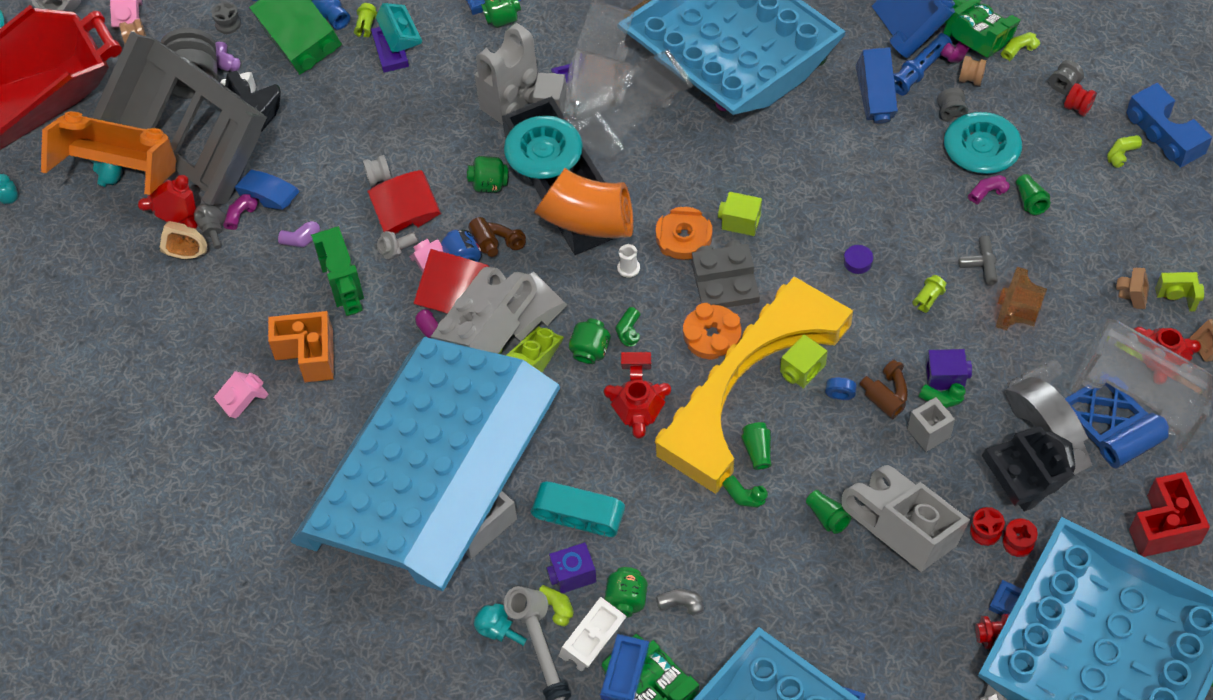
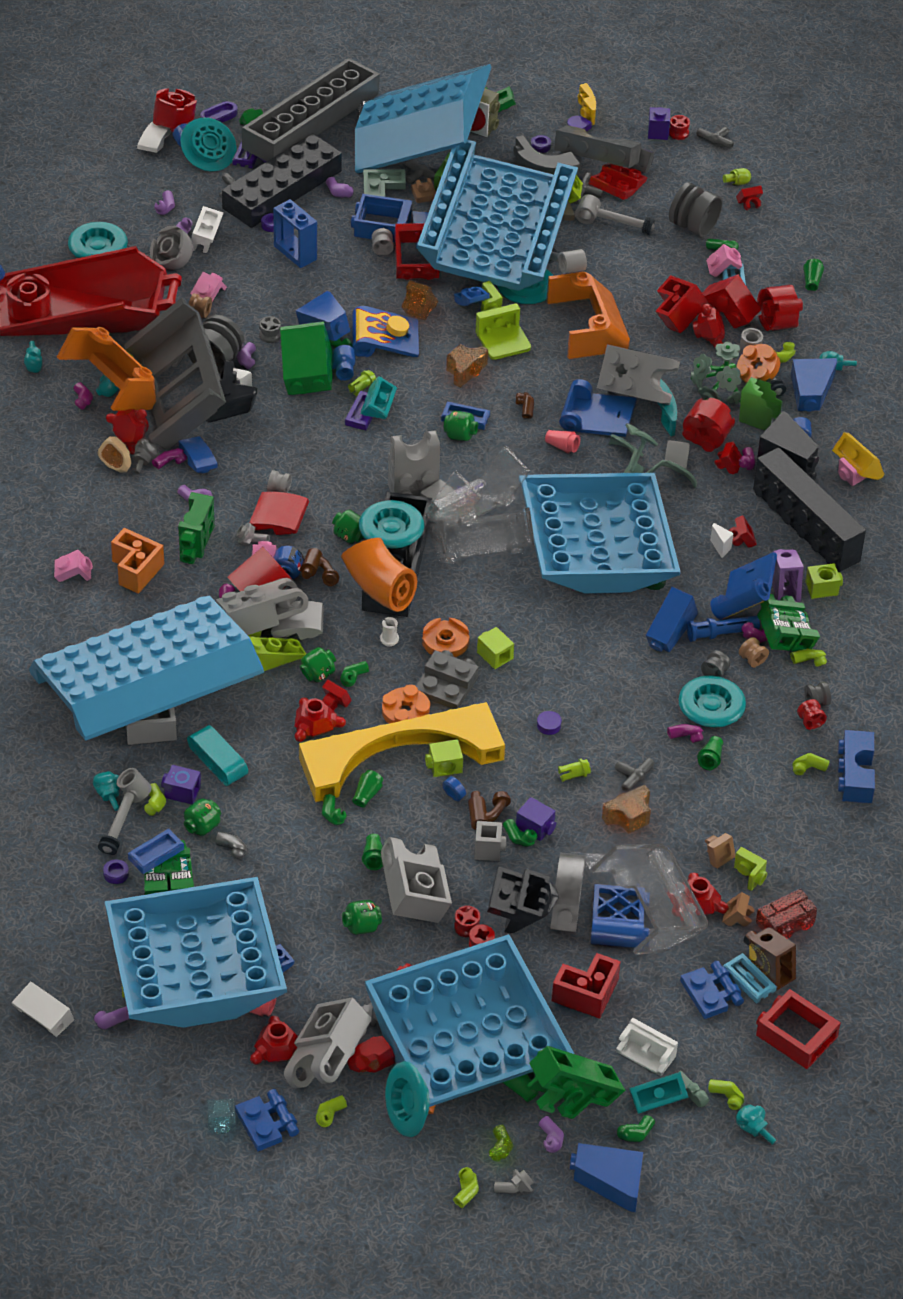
camera: 30 degrees right, 10 degrees down
(90, 194) = (84, 394): none -> magenta arm
(592, 634) = (156, 822): white hinge -> none
(886, 594) = (362, 917): none -> green head

